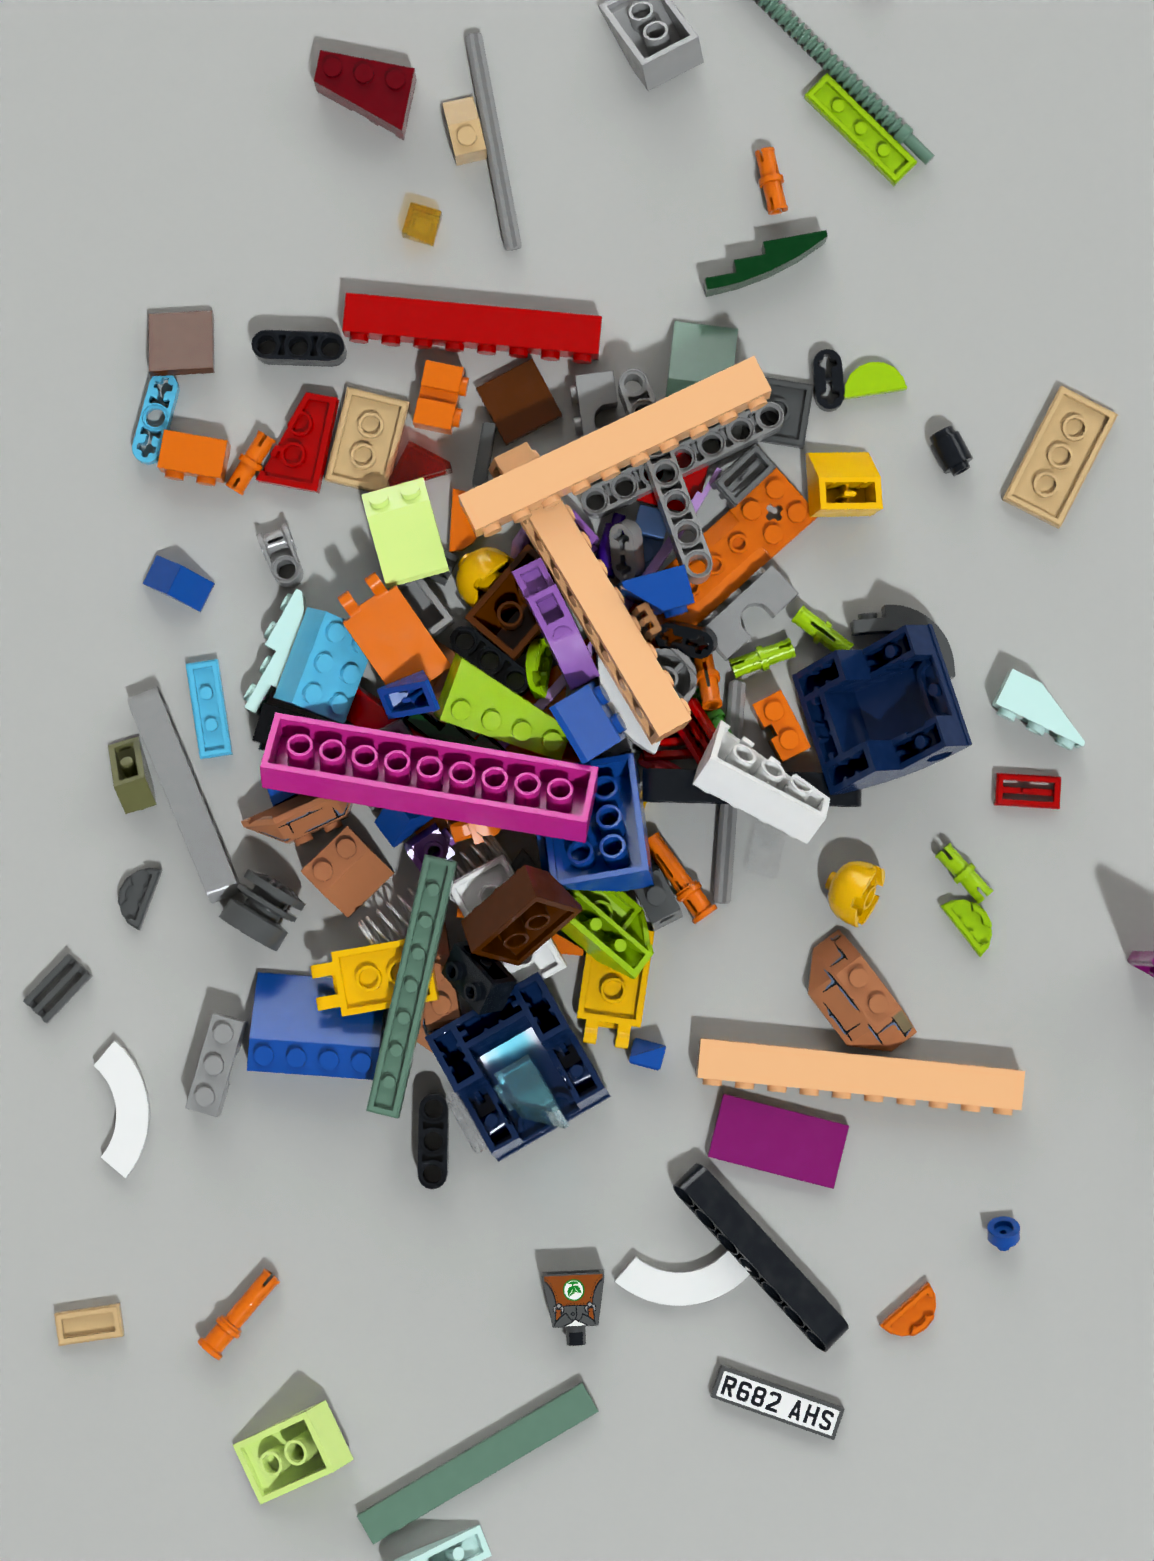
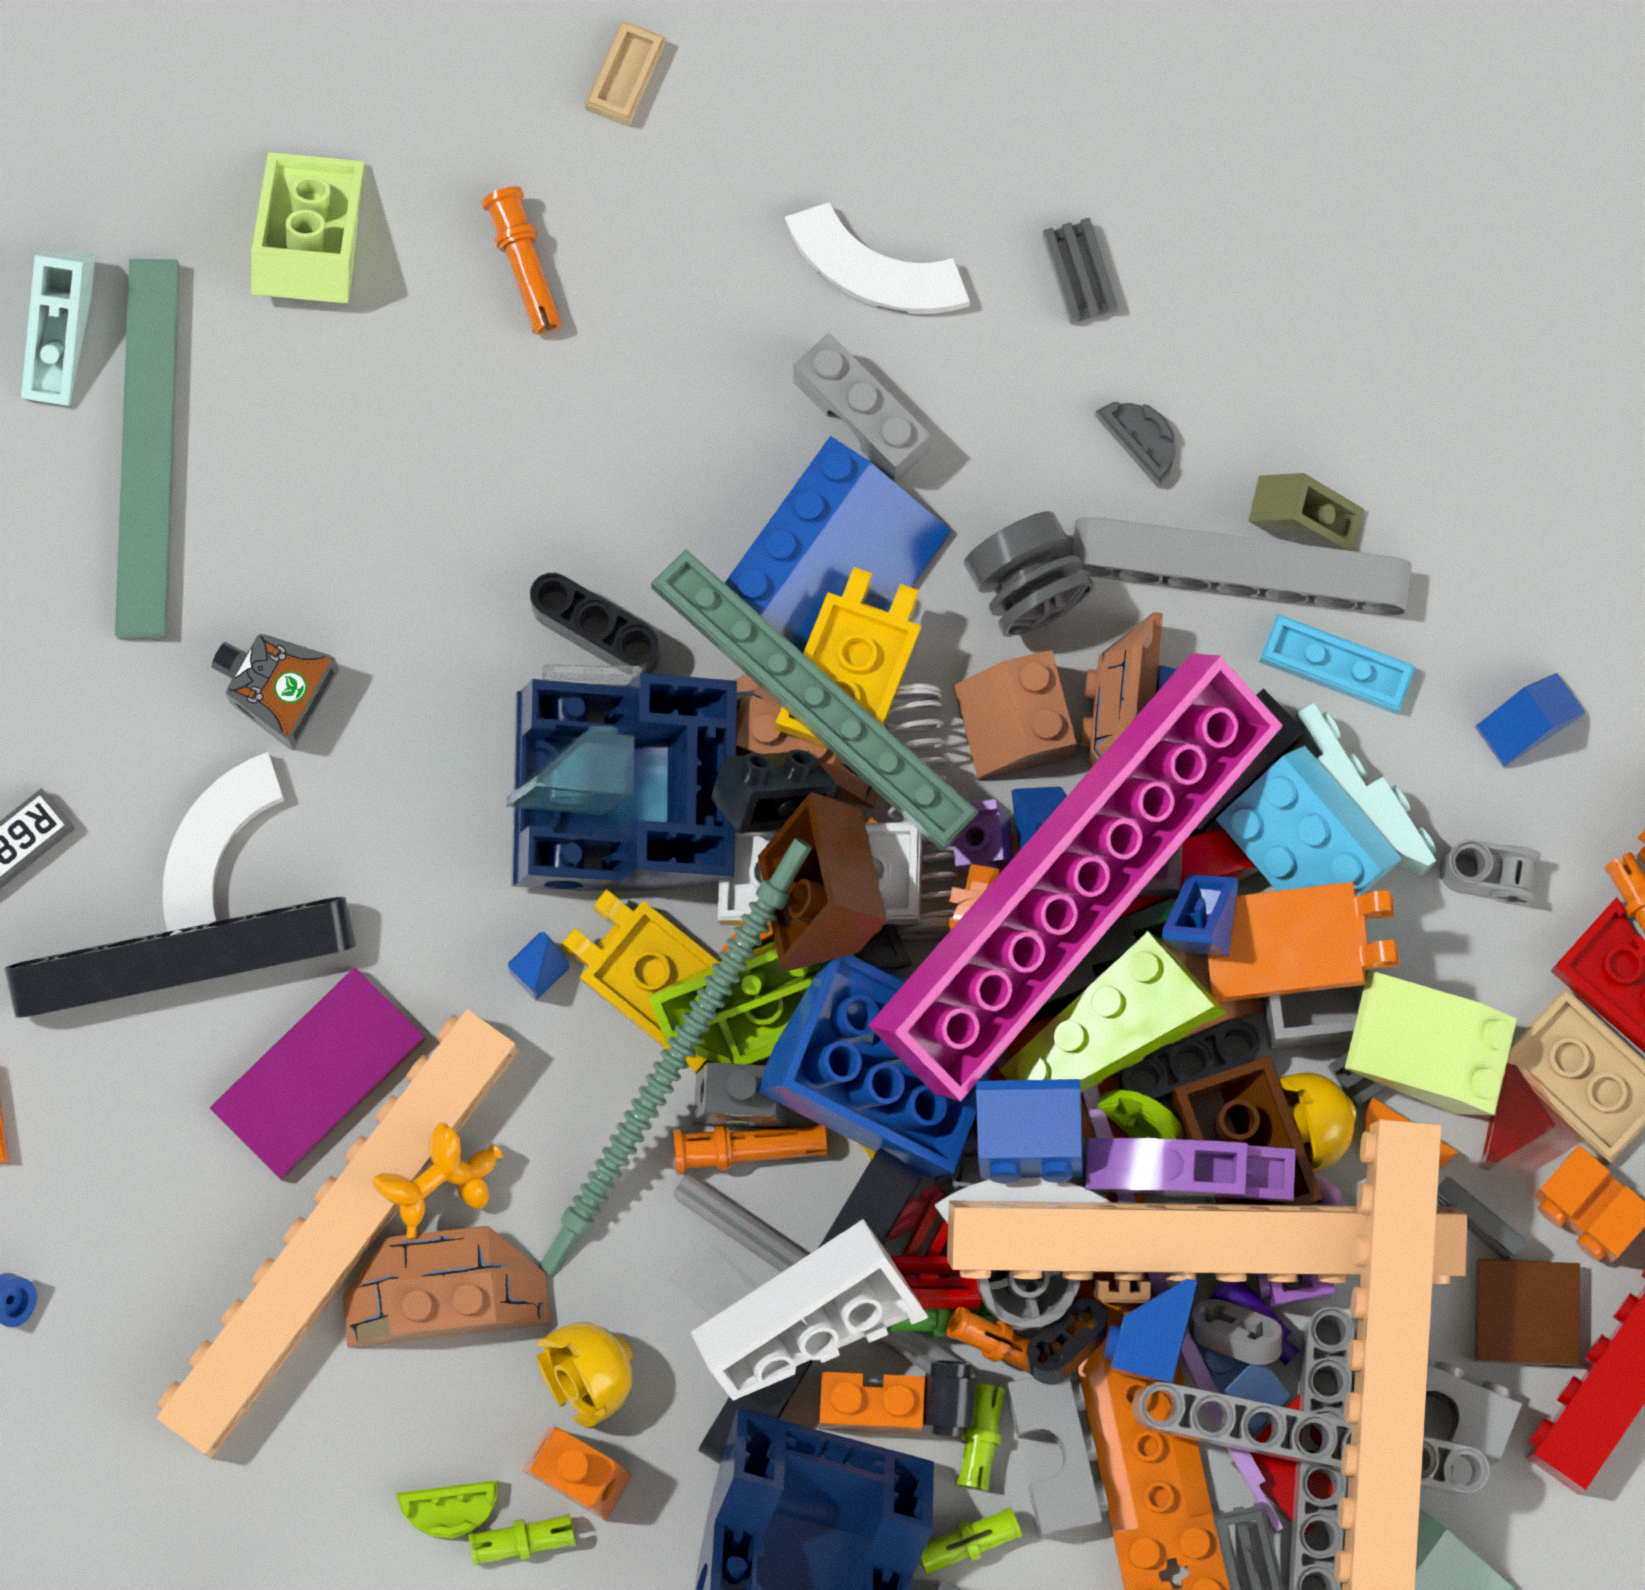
camera: 120 degrees right, 10 degrees down
(544, 939) = (578, 1219): none -> sand green hose
(754, 685) = (949, 1397): none -> black brick
(790, 1035) = (447, 1166): none -> light orange piece
(912, 865) = (577, 1472): none -> orange torso

